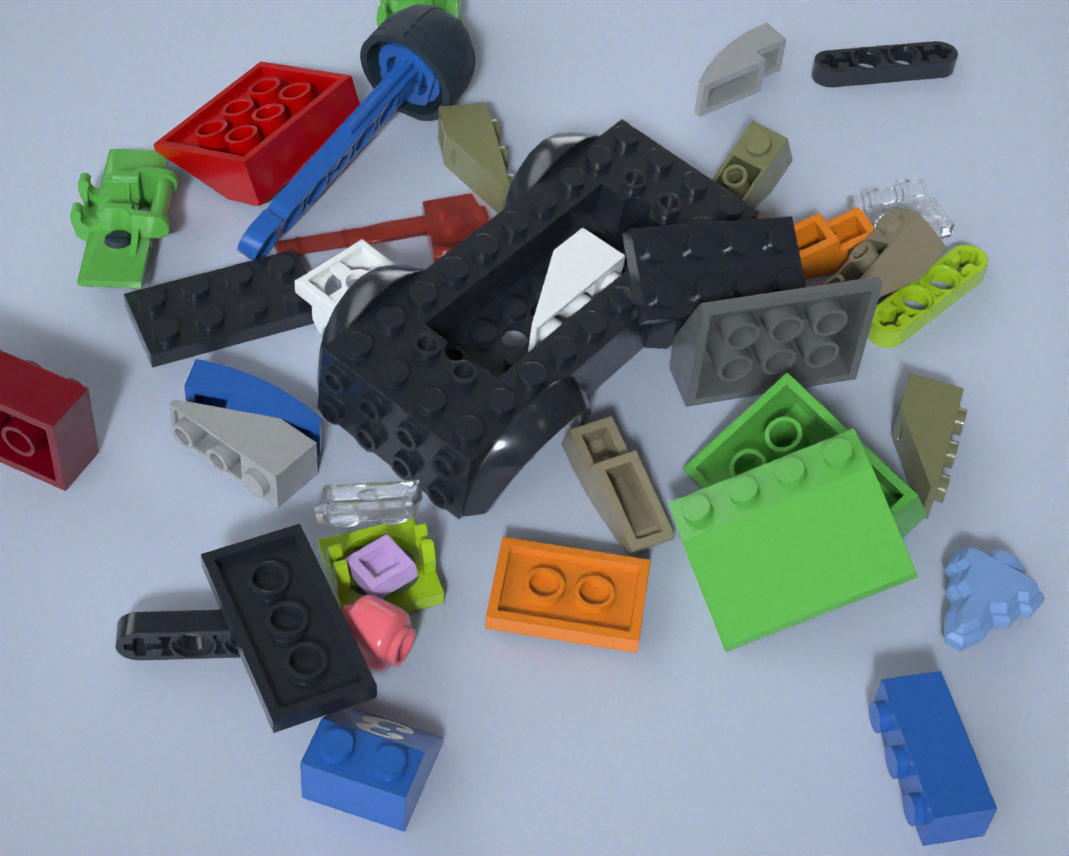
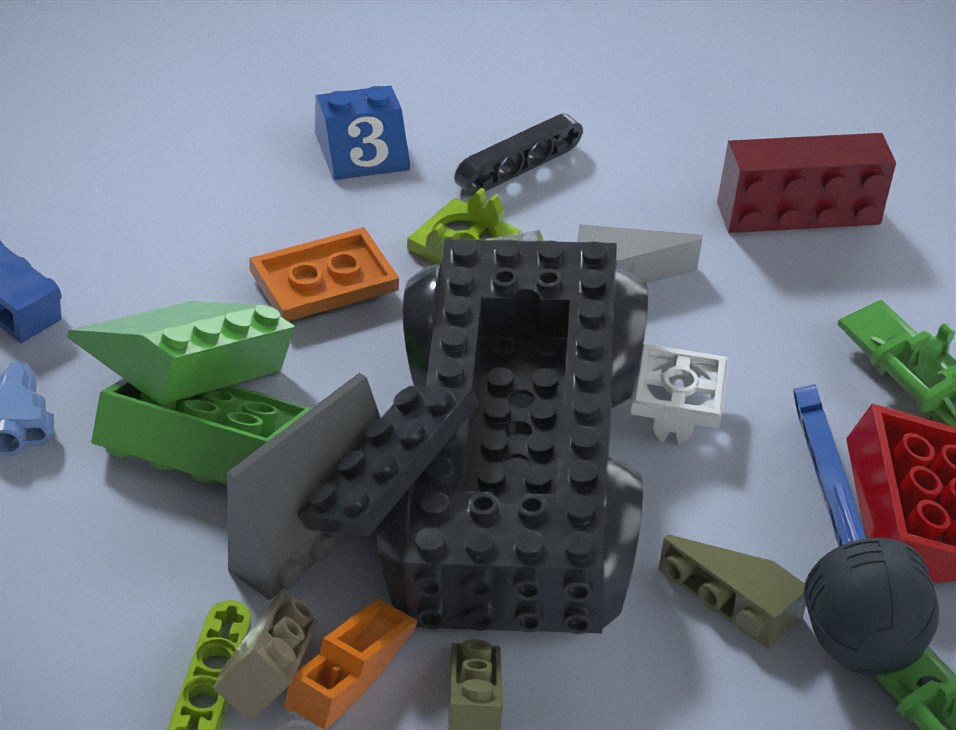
camera: 145 degrees right, 5 degrees down
(219, 308) = (773, 355): black plate -> none
(239, 391) = (678, 281): blue slope -> none
(288, 627) = (472, 138): black plate -> none
(380, 631) = (424, 185): coral head -> none
(381, 567) = (456, 212): lavender plate -> none
(442, 221) = (685, 512): clear red piece -> none
(574, 277) = (506, 419): white slope -> none
(617, 485) = (344, 351): dark tan slope -> none
(923, 435) = (133, 514): olive slope -> none

